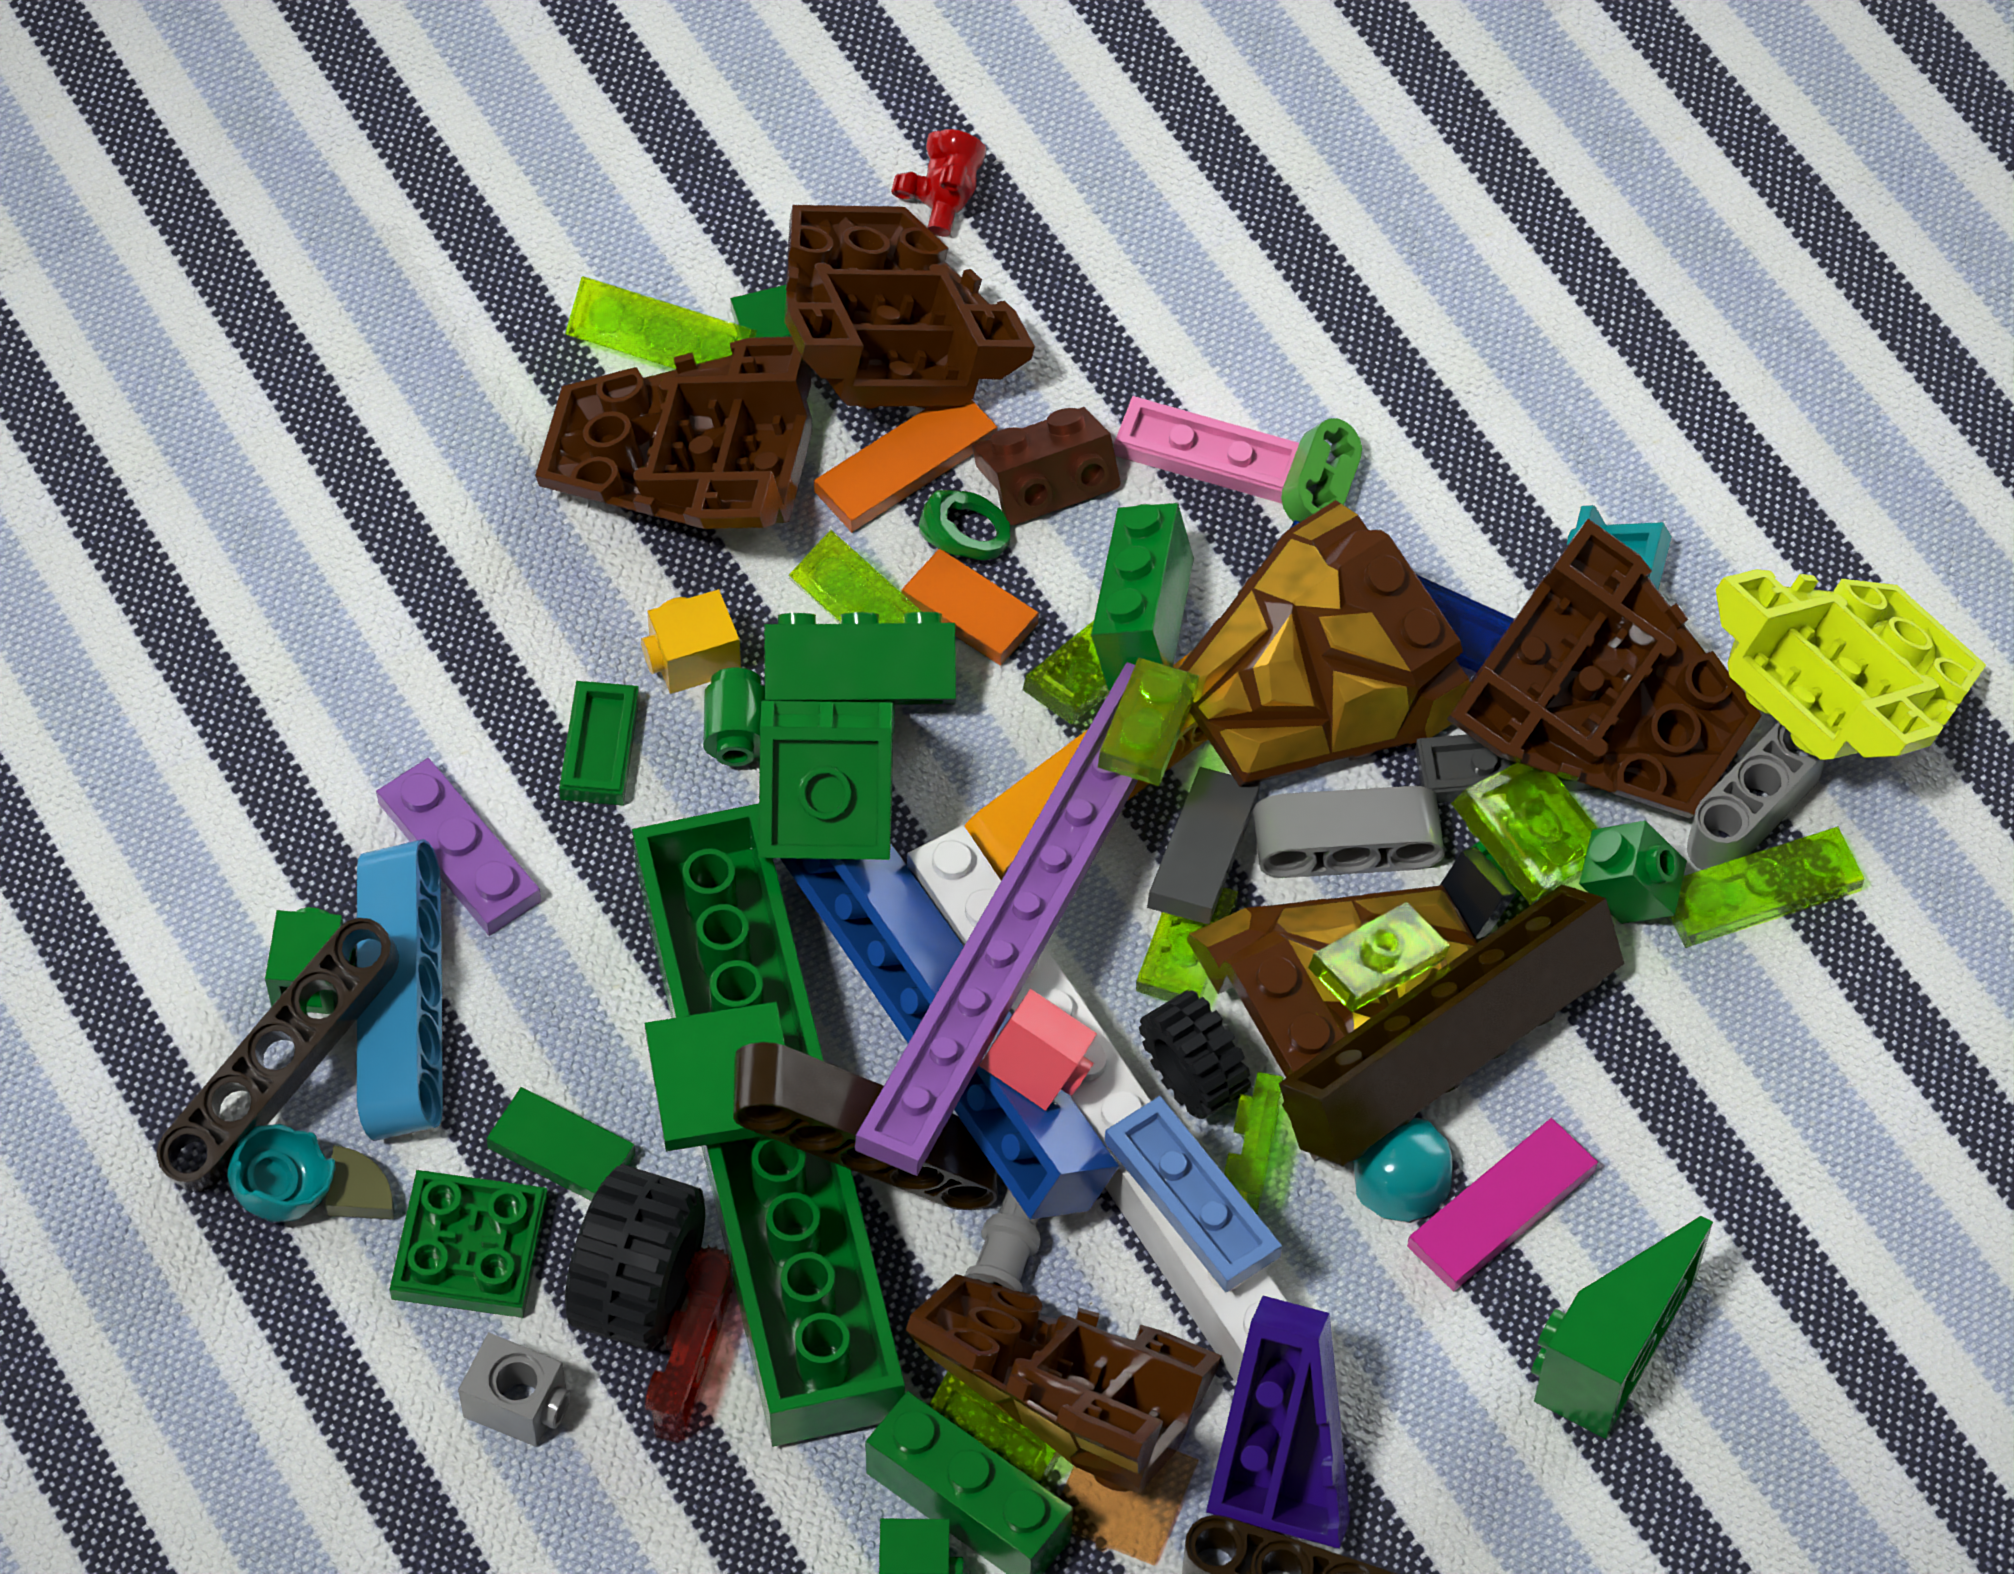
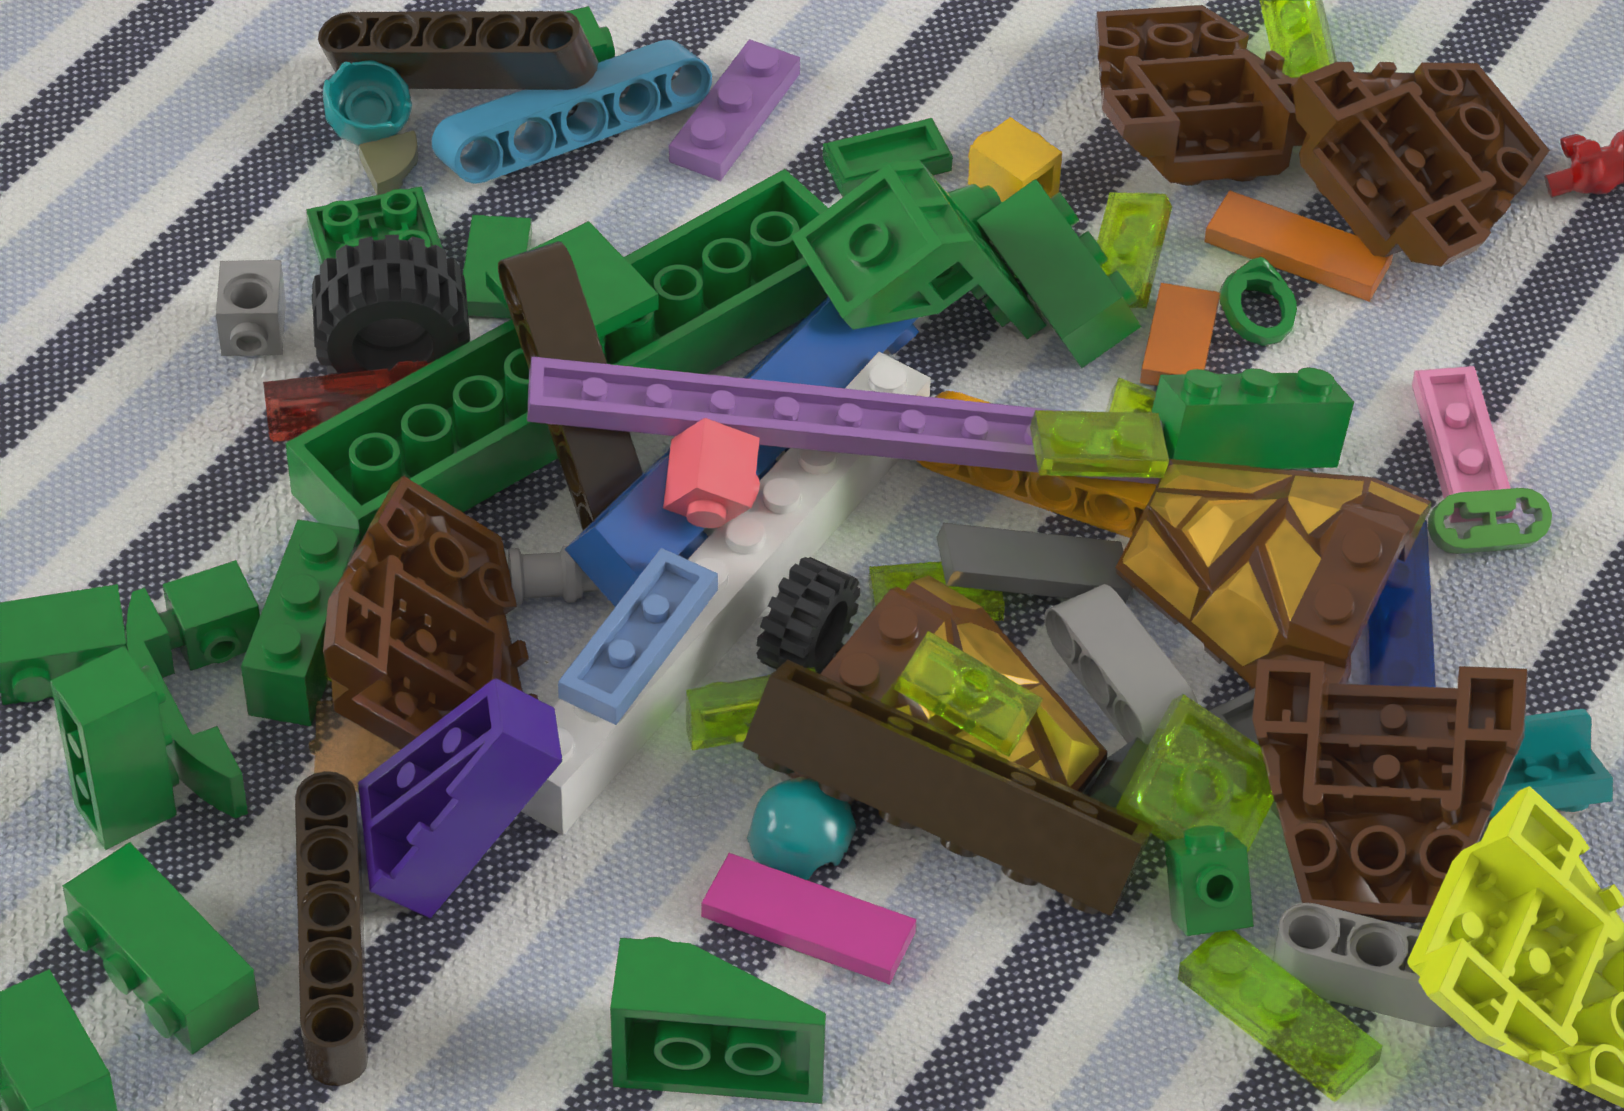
camera: 65 degrees right, 10 degrees down
(1049, 464) = (1358, 334): copper bracket -> none

